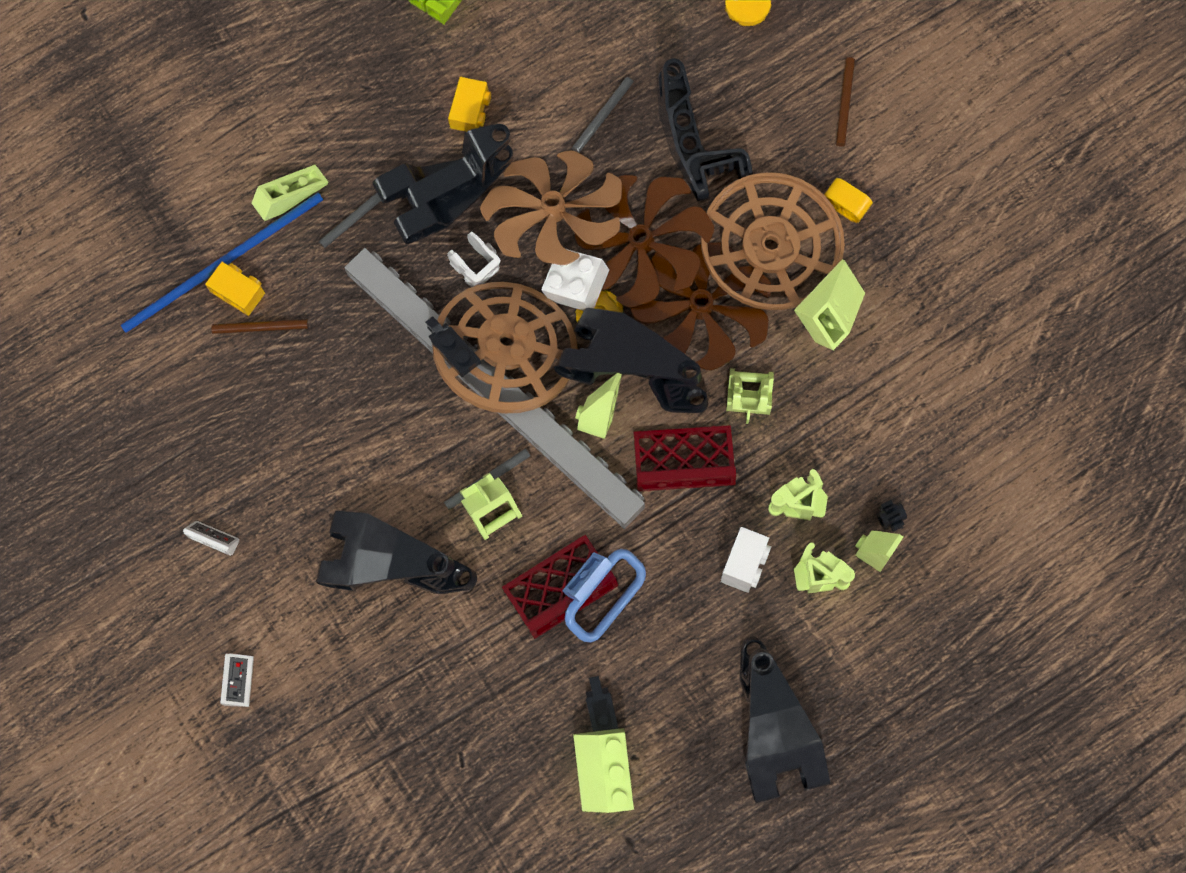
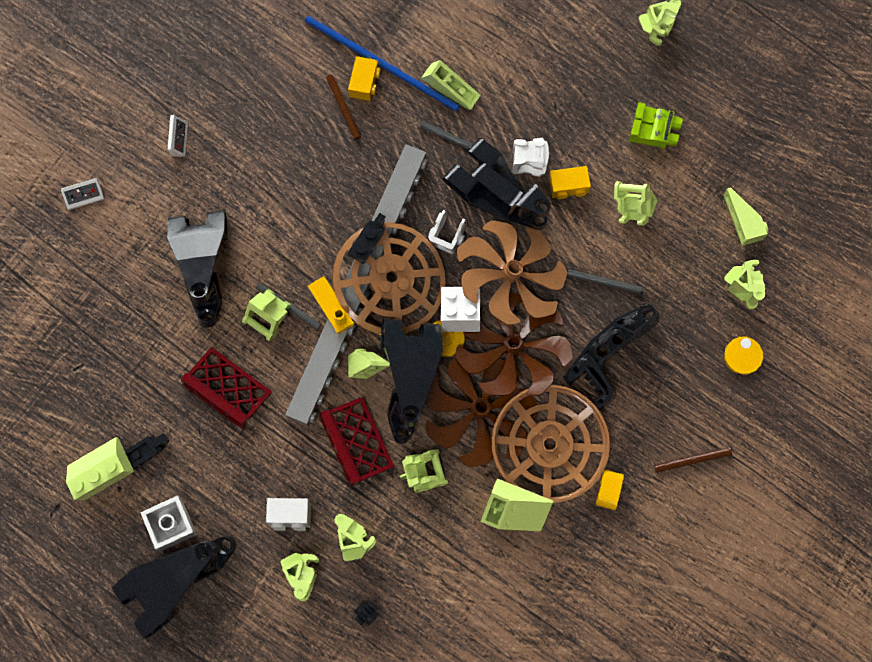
camera: 65 degrees right, 0 degrees up
(421, 134) = (530, 156): none -> white piece
(512, 424) = (330, 305): none -> yellow piece
(526, 42) = (634, 205): none -> yellowish green piece
(588, 579) = (231, 403): medium blue bar -> none
(704, 706) = (168, 523): none -> white brick
(877, 548) = (333, 610): yellowish green slope -> none

